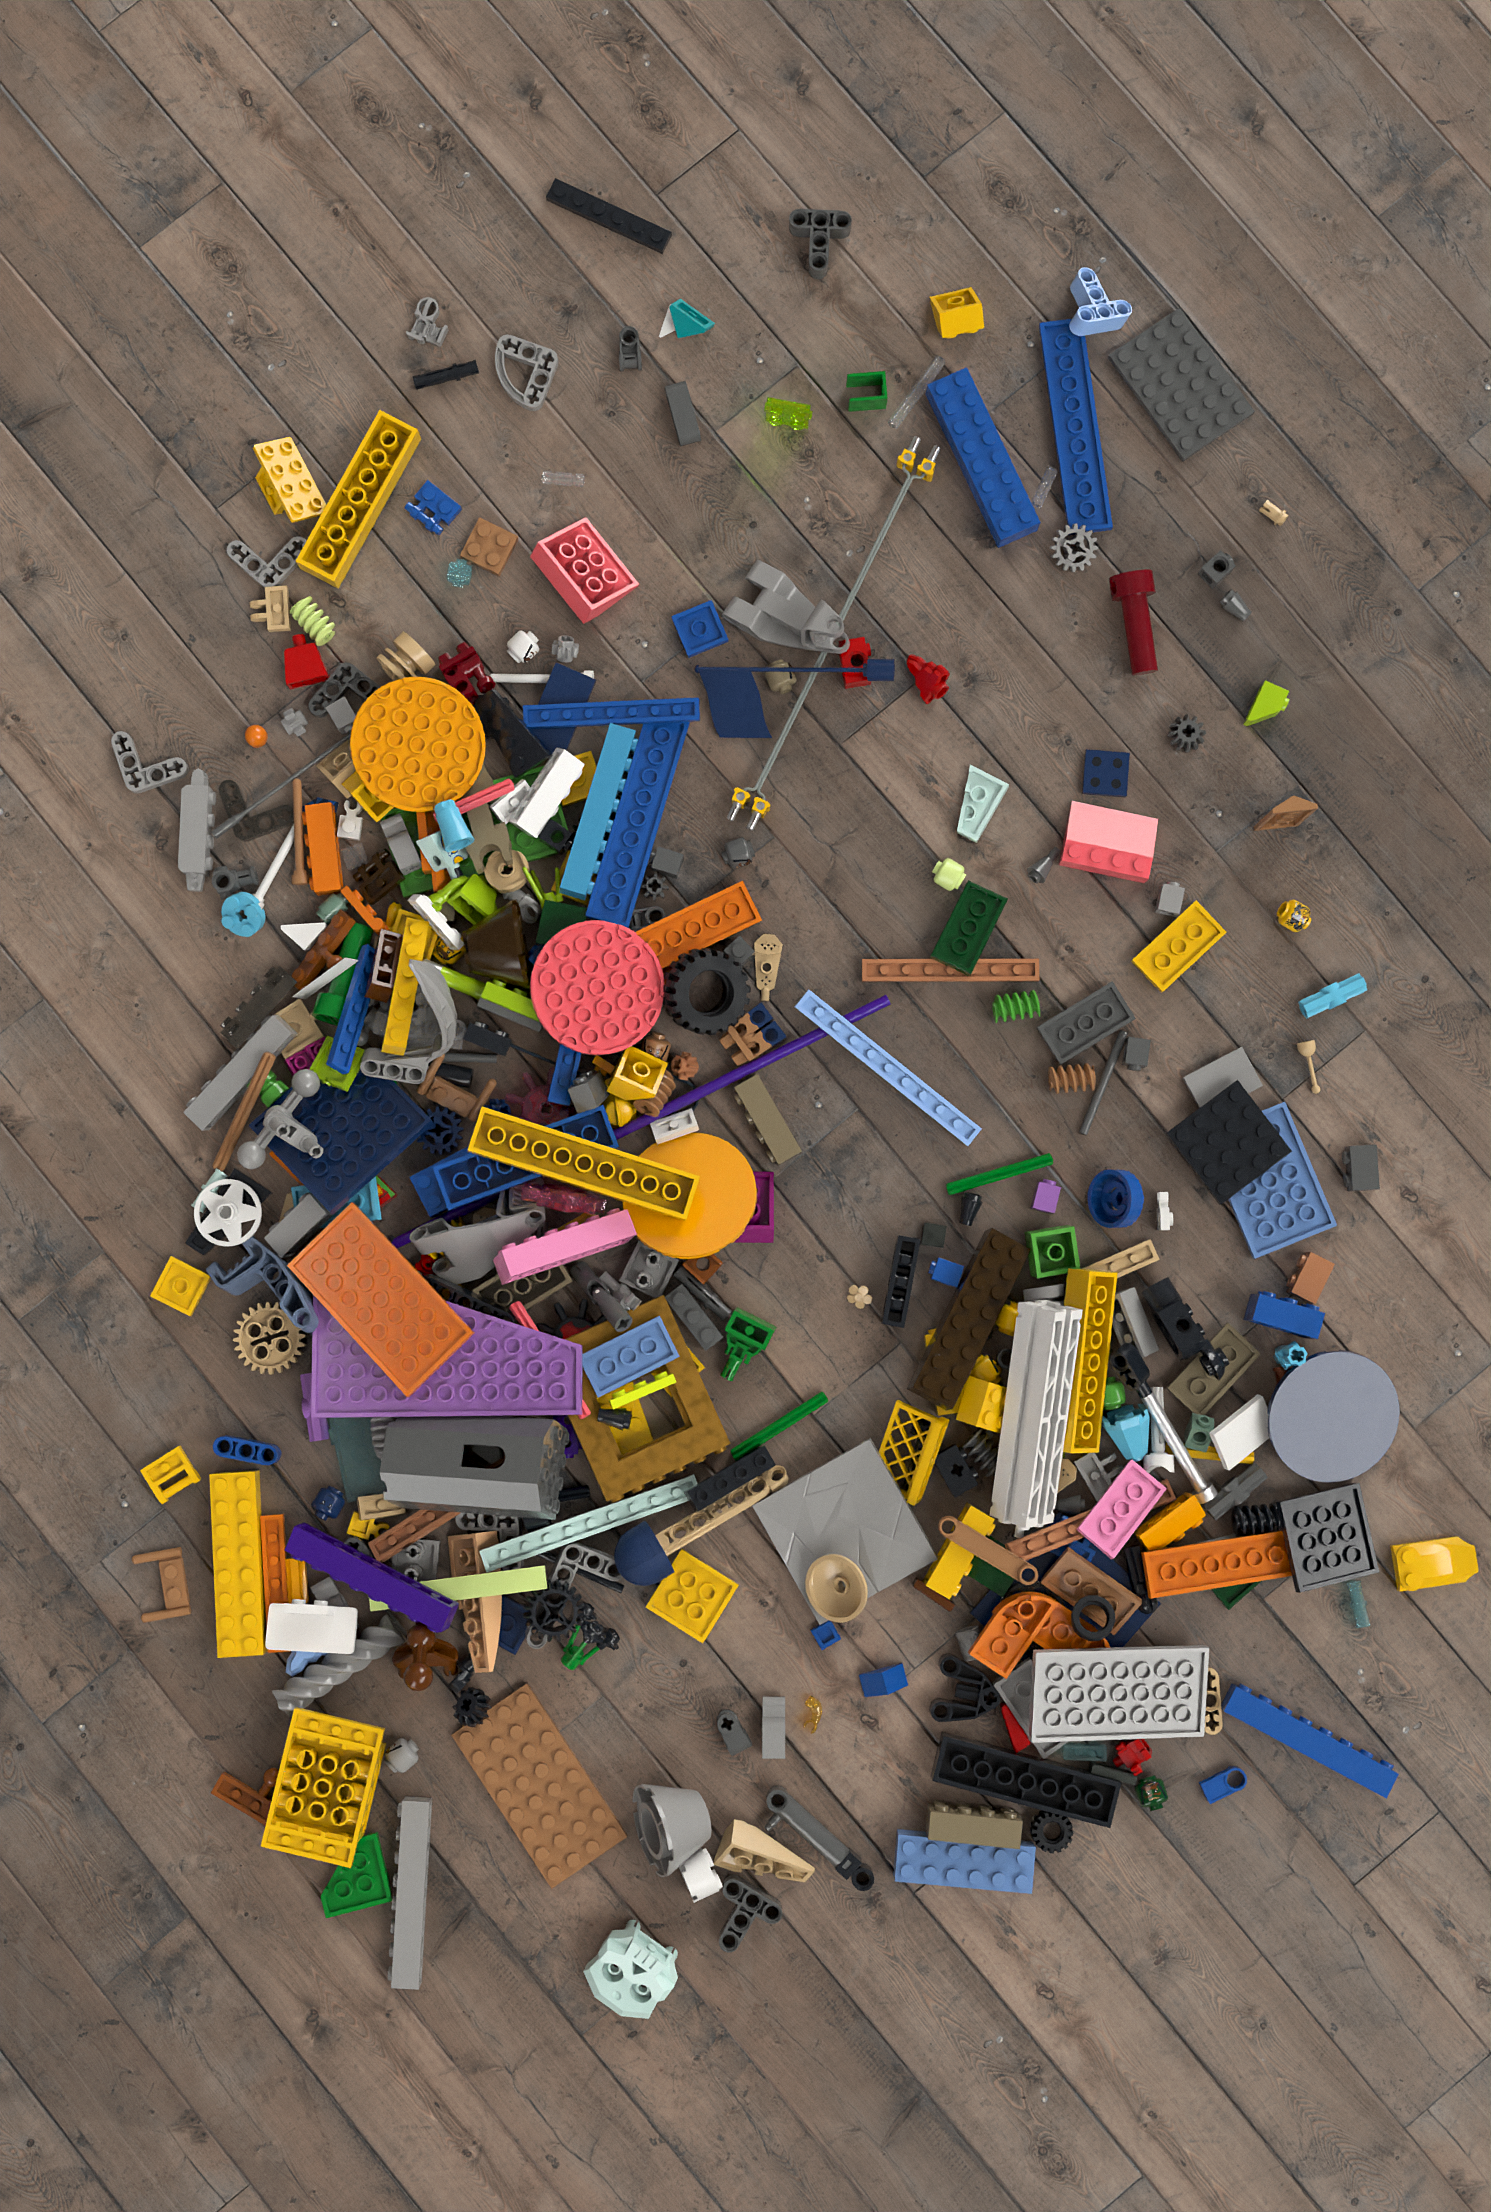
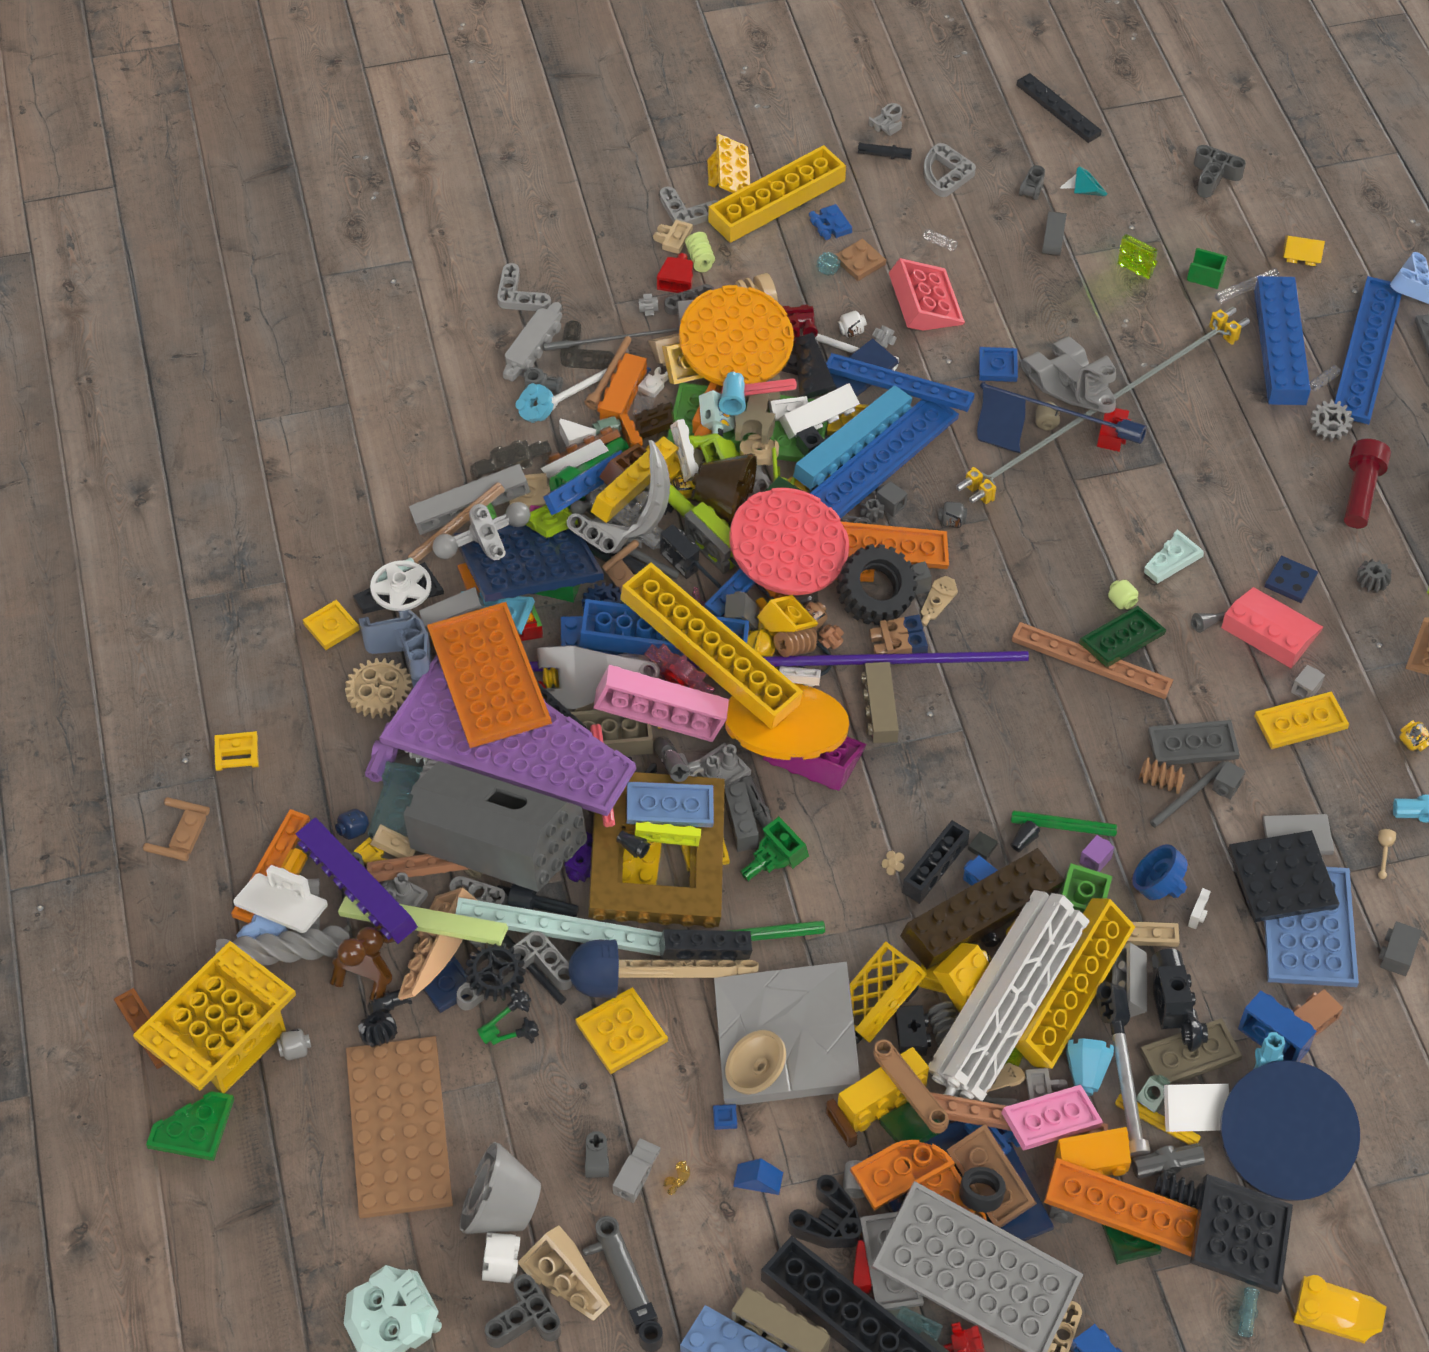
camera: 25 degrees right, 30 degrees down
(236, 1445) = (304, 751): blue beam -> none
(238, 1563) = (248, 835): yellow brick -> none
(256, 736) = (613, 304): orange piece -> none
(401, 844) = (685, 403): light grey piece -> none
(411, 1893) = (232, 1160): light grey brick -> none
(703, 1276) = (778, 778): dark orange piece -> none
(887, 1067) = (1004, 702): light blue plate -> none
(929, 678) = (1170, 460): red rock -> none
(1015, 1006) = (1136, 704): bright green piece -> none
(1114, 1394) = (1087, 1028): bright green head -> none
(1137, 1576) = (1041, 1212): black piece -> none
(1158, 1457) = (1106, 1099): white piece -> none

